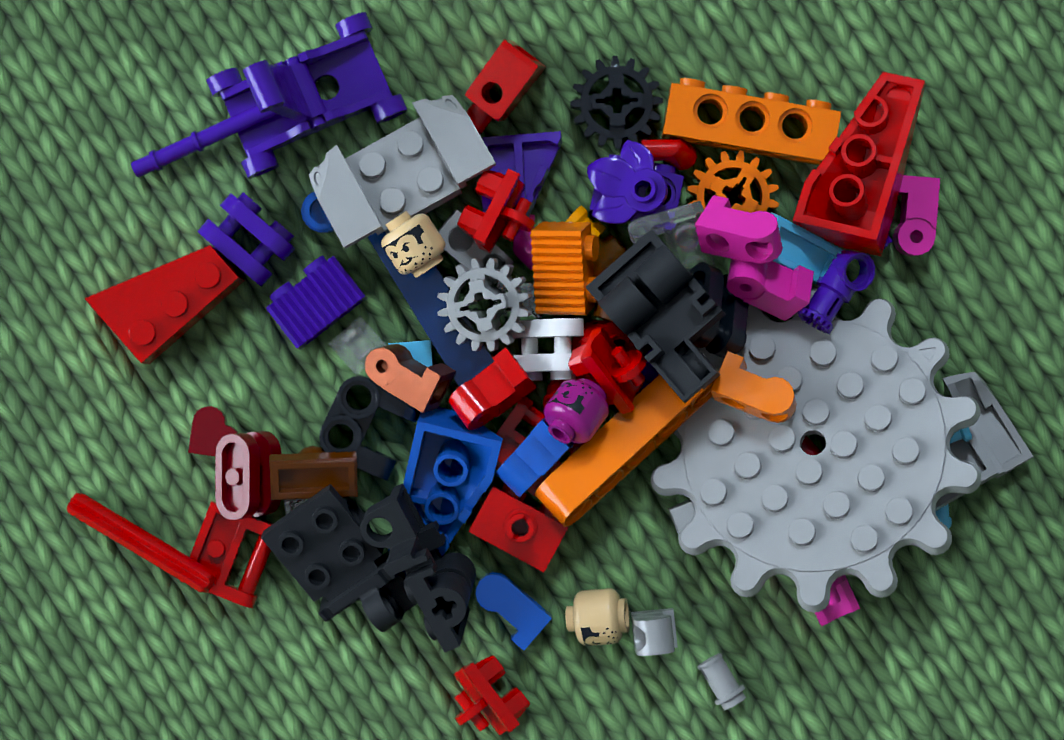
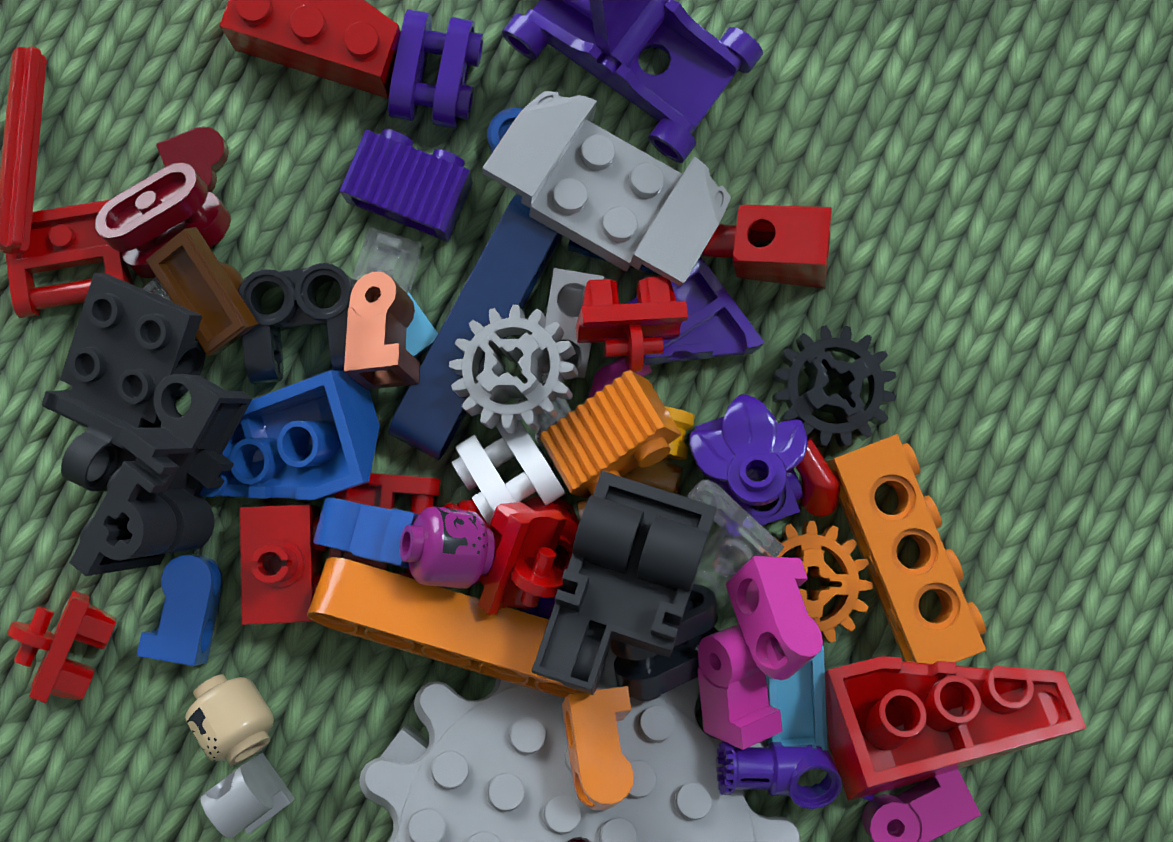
camera: 50 degrees right, 5 degrees down
(413, 244) = (534, 245): tan head -> none
(491, 391) = (417, 436): red leg -> none

